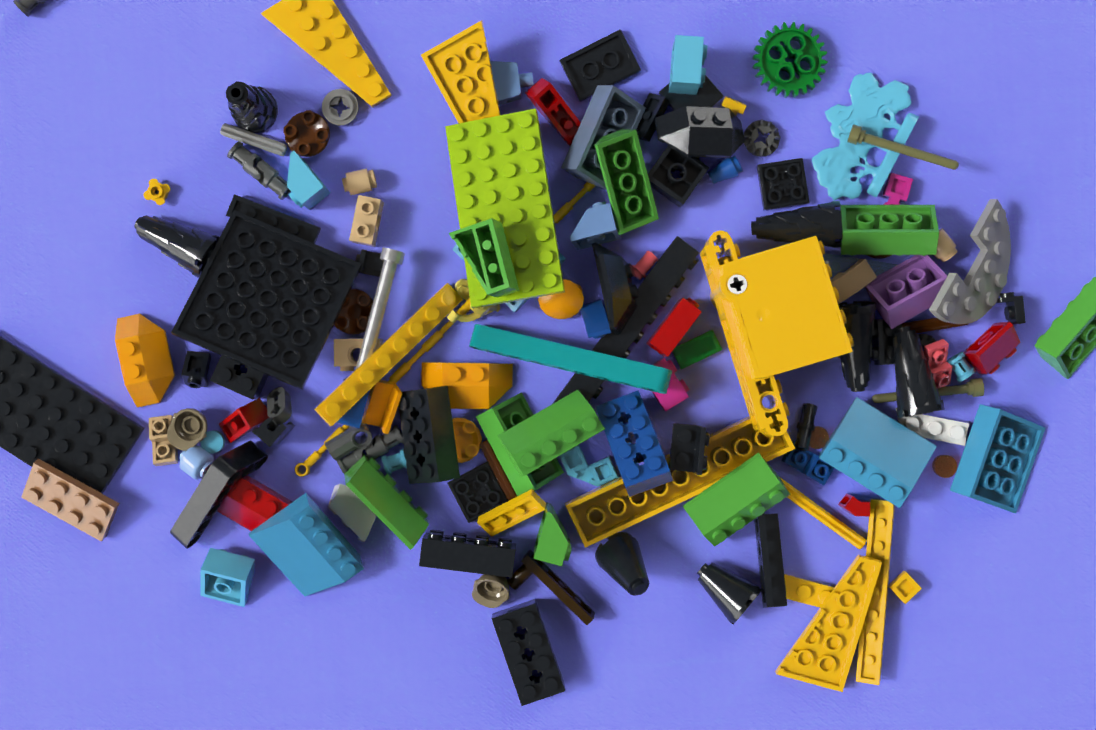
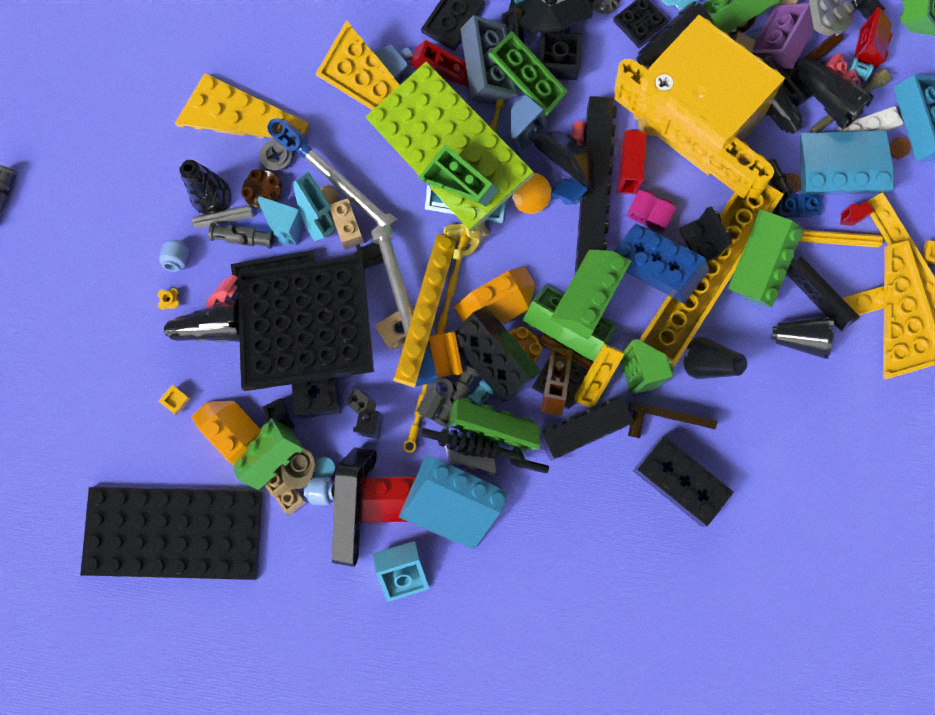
camera: 30 degrees left, 10 degrees down
(70, 500) = (233, 585): plate -> none
(109, 294) = (174, 400): none -> yellow plate
(165, 401) = (266, 454): none -> bright green wedge
(185, 152) = (174, 255): none -> light blue head
(210, 219) = (222, 291): none -> coral slope
(244, 420) = (339, 434): red slope -> none
(341, 190) = (313, 207): none -> medium azure slope
(355, 313) = (380, 299): reddish brown dish -> none
(357, 510) = (475, 445): none -> black piece
(366, 116) = (326, 169): none -> flat silver piece
(470, 493) = (556, 381): none -> reddish brown slope
(491, 590) = (621, 449): dark tan hat -> none
(571, 358) = (569, 229): teal beam -> none
(595, 473) = (626, 314): medium azure tile -> none
(696, 349) = (657, 172): green tile -> none
(725, 170) = (594, 32): blue cone -> none

